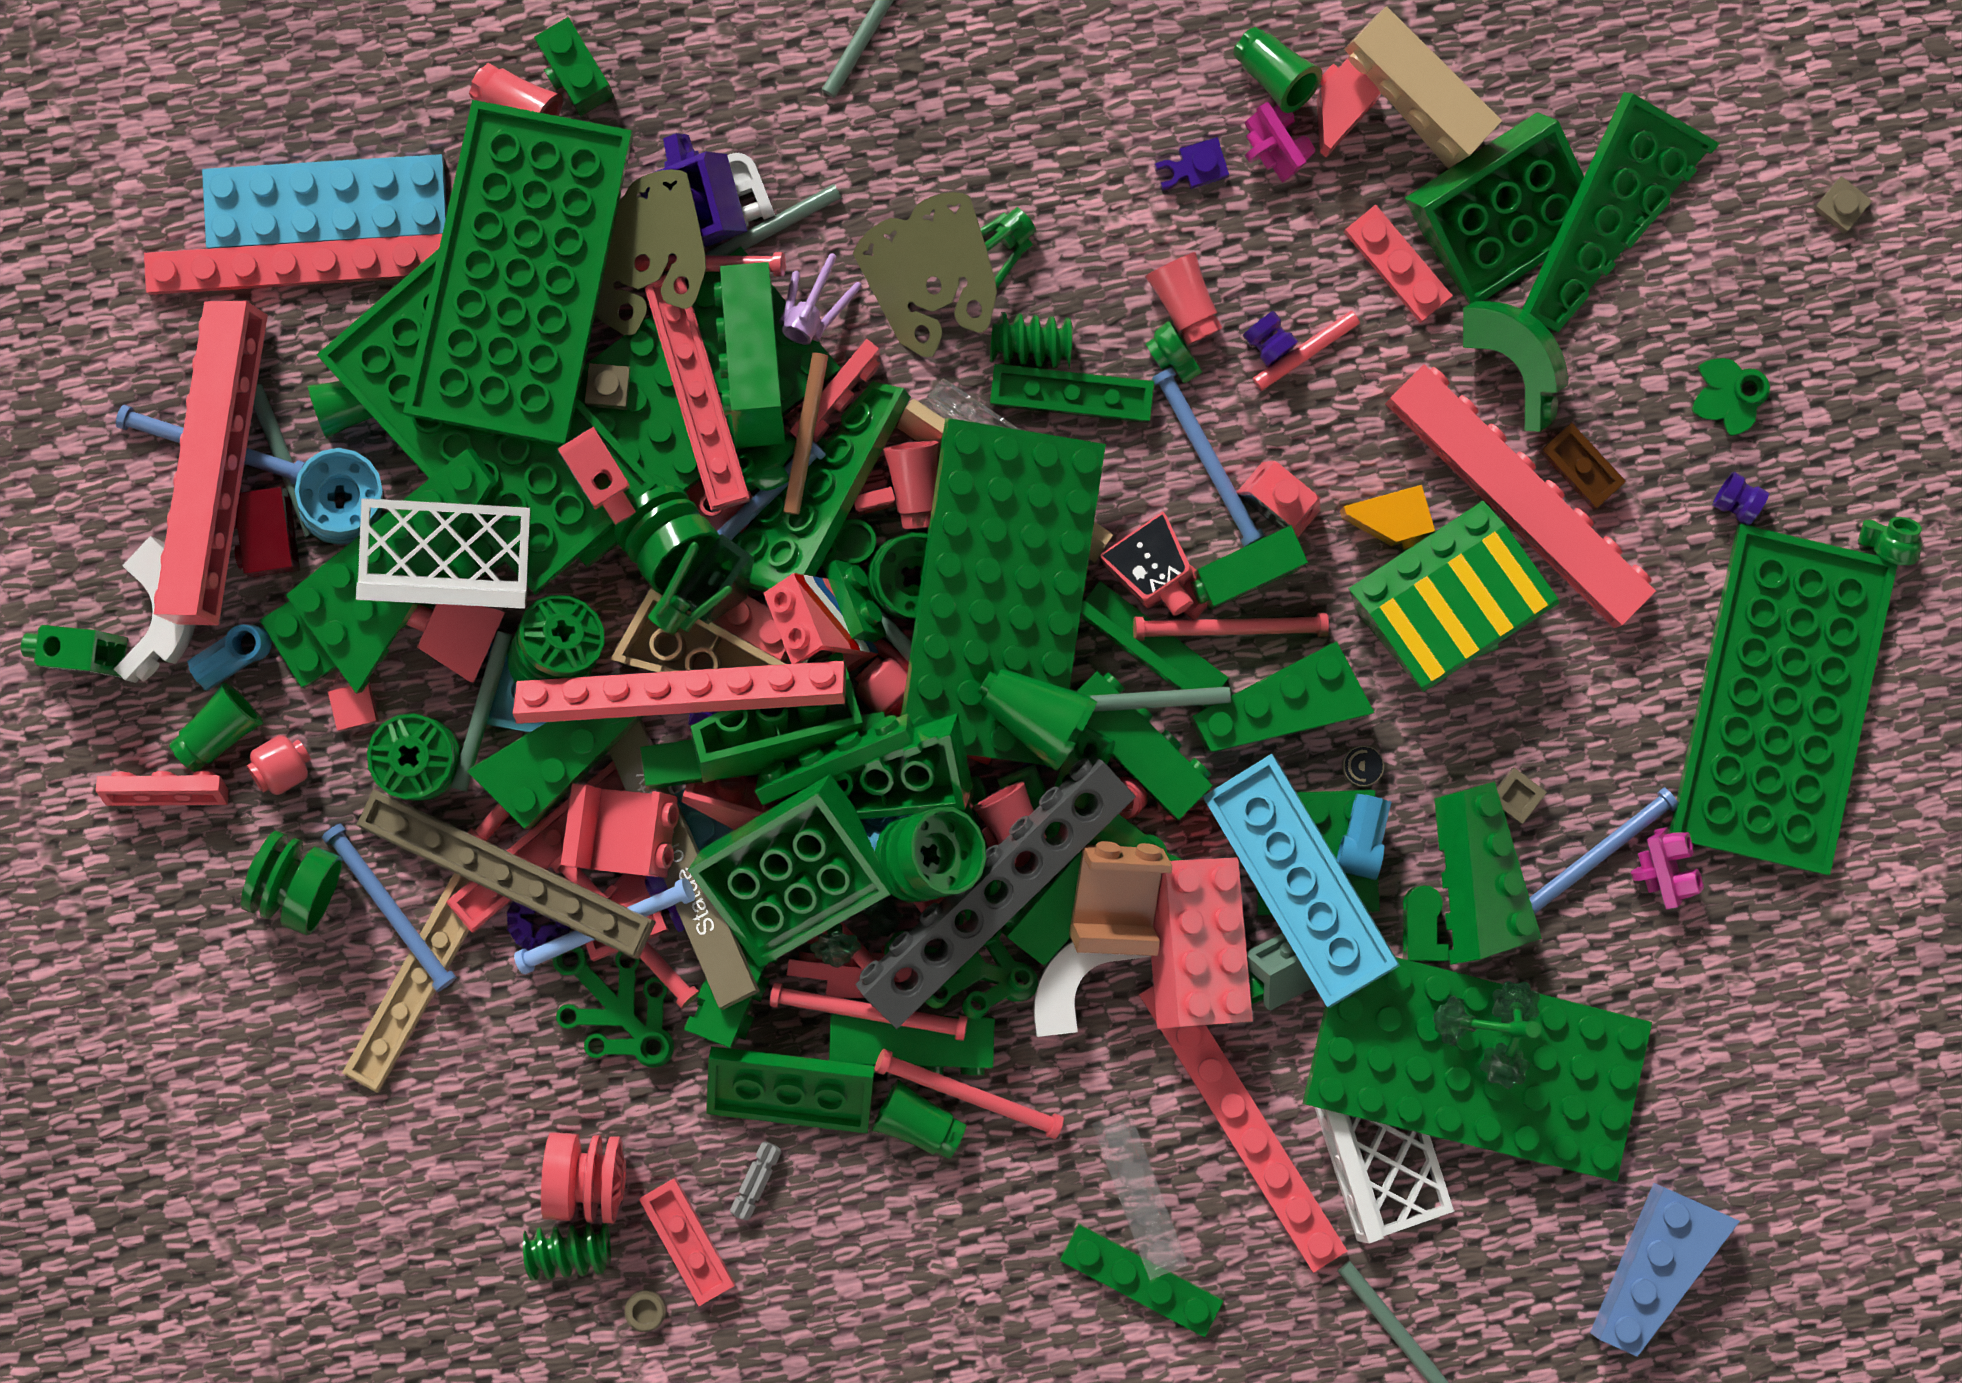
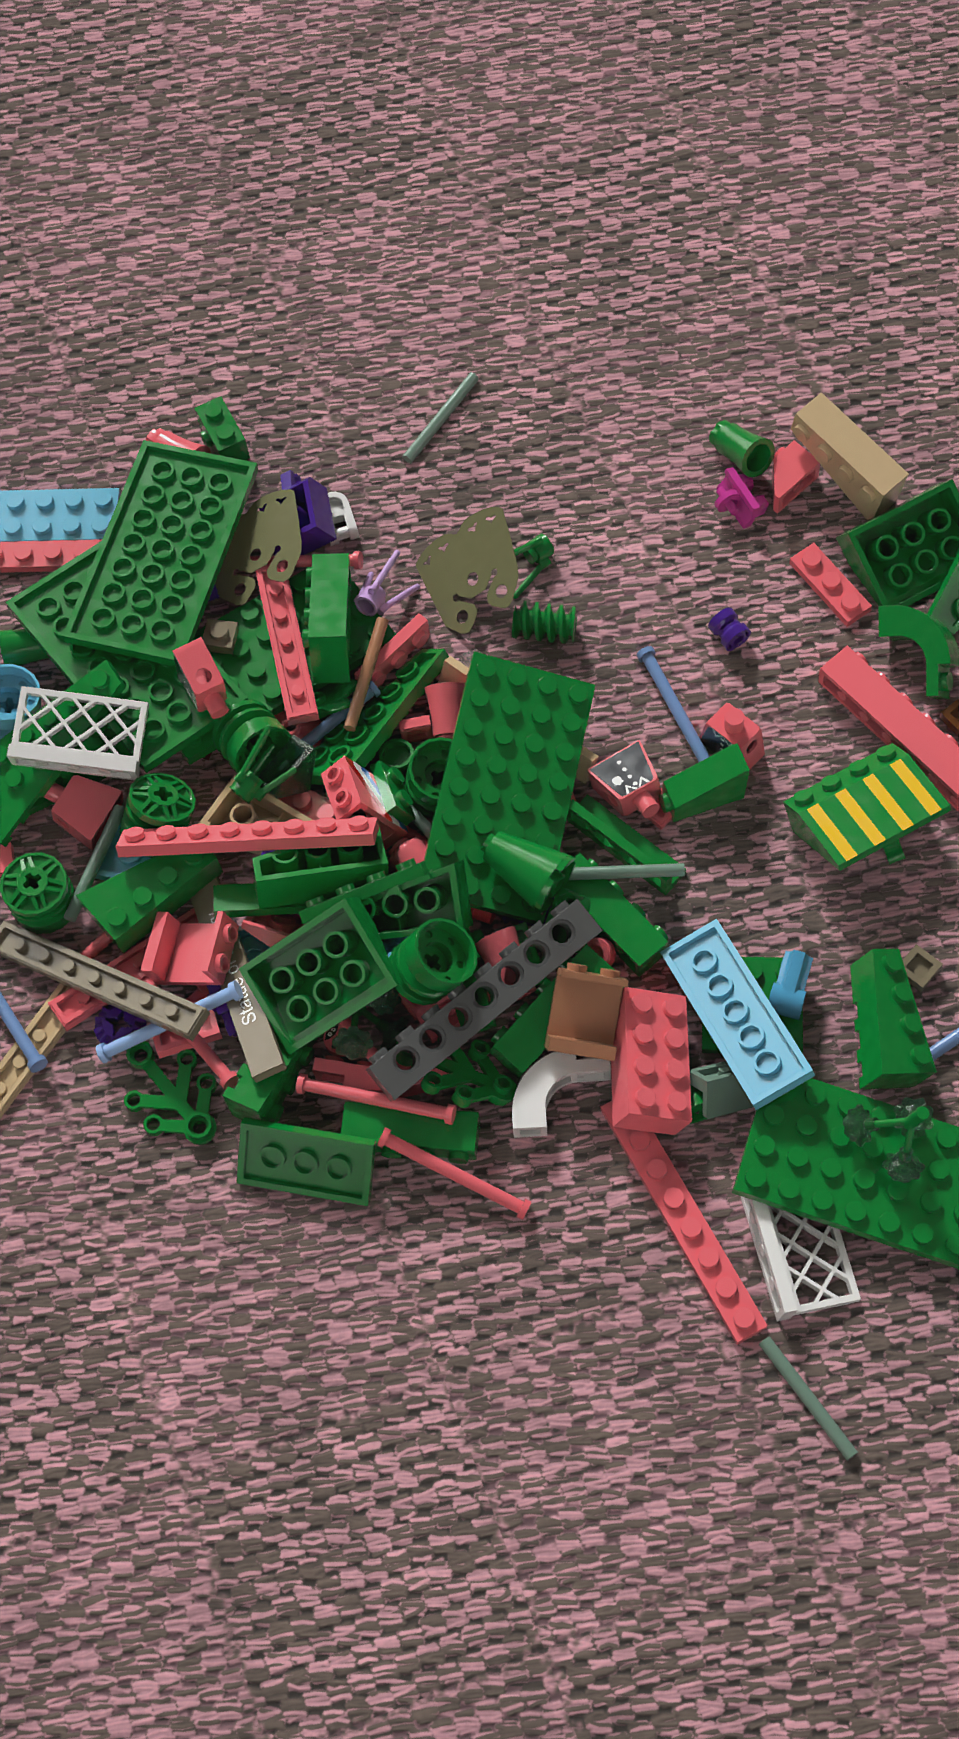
camera: 15 degrees right, 20 degrees down
(566, 1252) = (108, 1285): green piece -> none
(582, 1177) = (127, 1219): coral wheel -> none
(645, 1310) = (168, 1342): dark tan tile -> none
(687, 1241) = (209, 1284): coral plate -> none
(755, 1181) = (271, 1239): light grey axle -> none
(778, 222) = (368, 538): sand green bar -> none
(918, 1122) = (410, 1195): green plant -> none
(1071, 393) = (577, 661): green plate -> none
(1126, 1273) = (589, 1341): green plate -> none
(1139, 1195) = (591, 1267): clear plate -> none
(1170, 349) = (652, 634): green piece -> none
(1186, 298) = (664, 597): coral plant -> none
(1199, 163) = (679, 513): dark purple plate -> none
(1231, 626) = (690, 830): coral bar -> none
(1293, 700) = (730, 886): green wedge -> none
(1306, 350) = (757, 641): coral bar -> none
(1363, 767) = (792, 938): black tile -> none
(1393, 517) = (818, 754): light orange slope -> none
(1420, 915) = (836, 1060): green leg -> none

